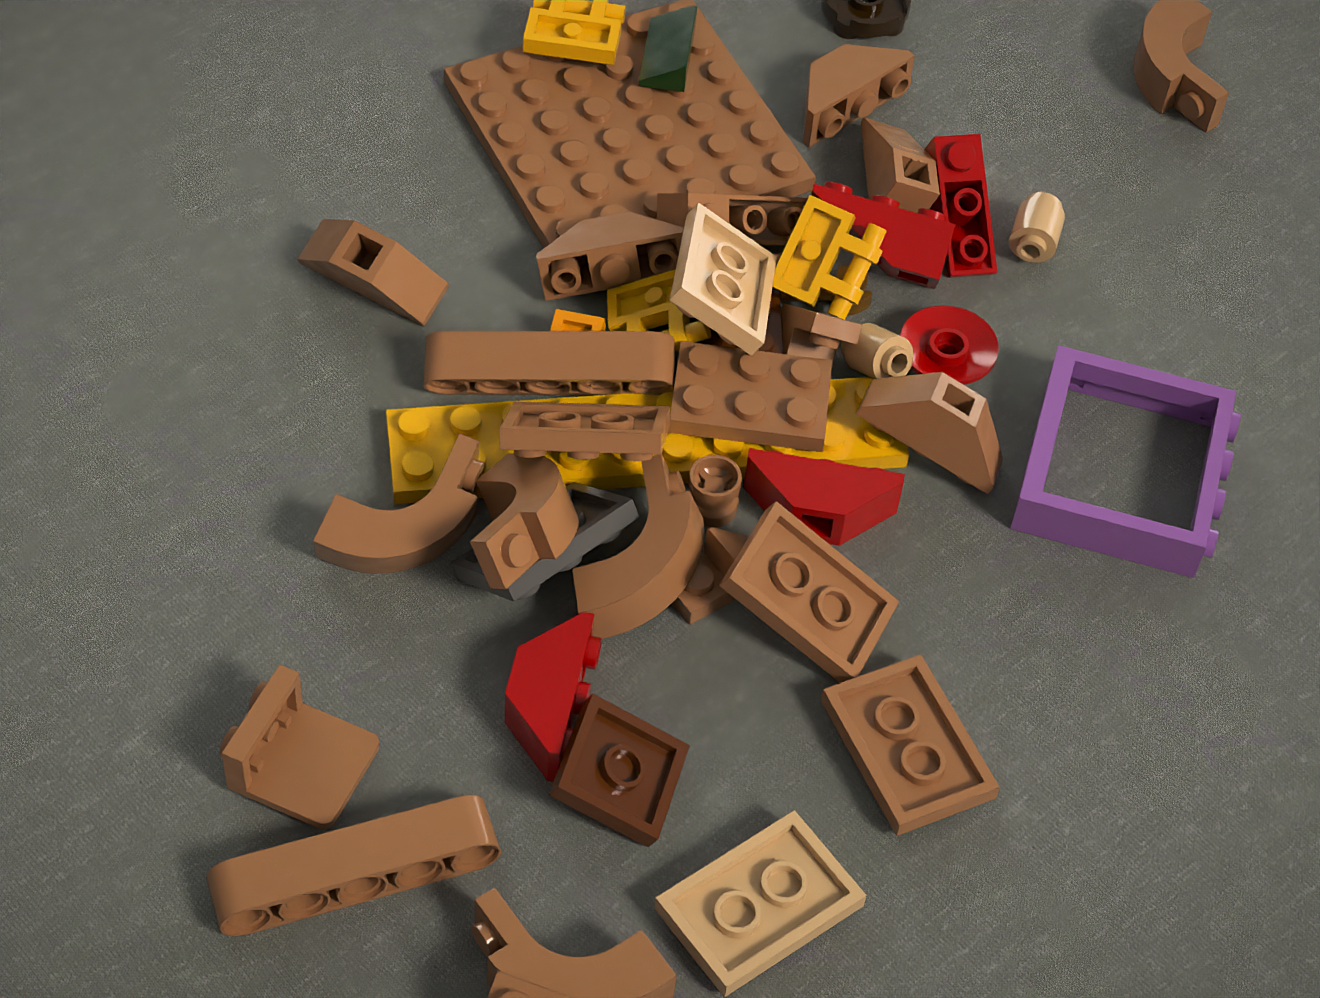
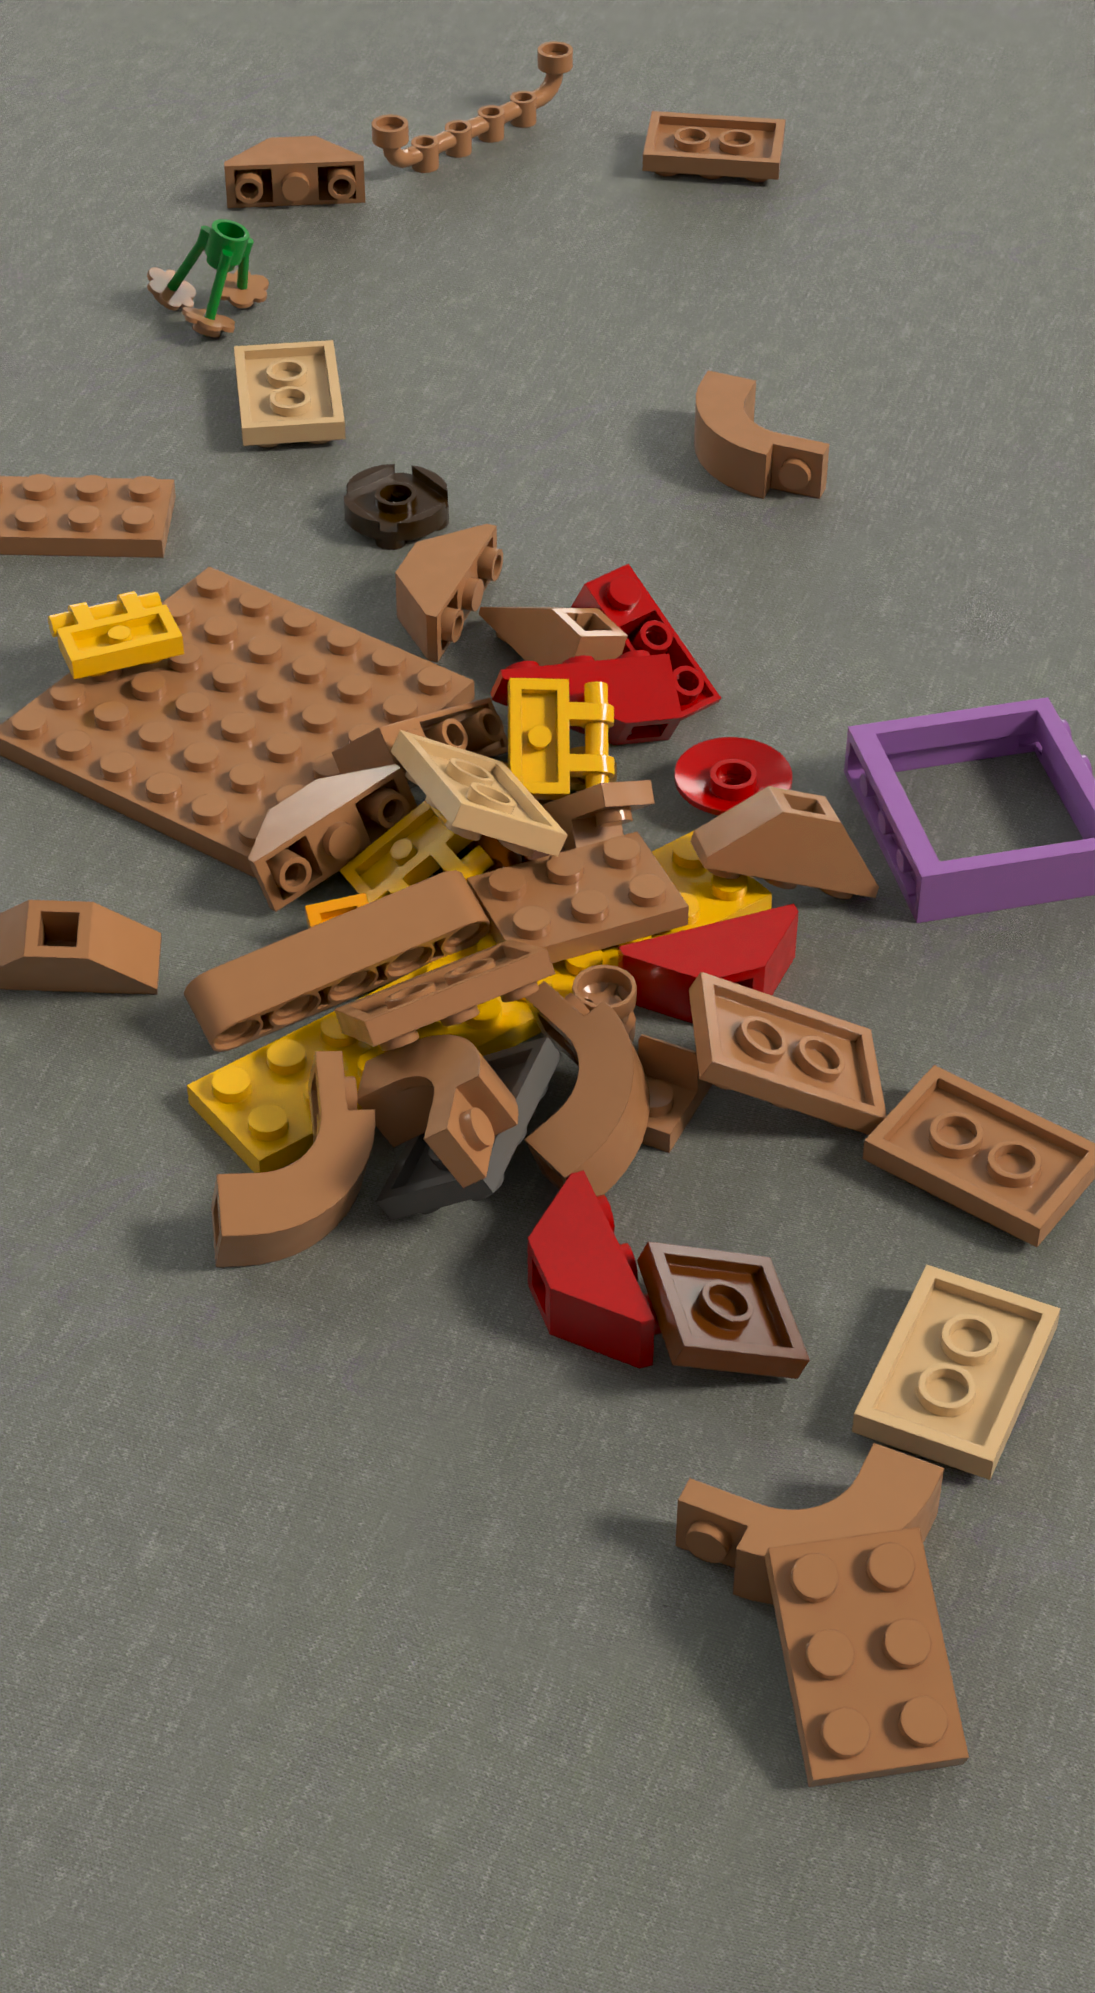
camera: 25 degrees left, 10 degrees down
(295, 753) = (360, 1466): medium nougat bracket -> none
(352, 865) = (504, 1545): medium nougat beam -> none
(668, 50) = (235, 616): dark green slope -> none
(878, 353) = (677, 811): tan brick -> none
(1037, 227) = (734, 638): tan brick -> none

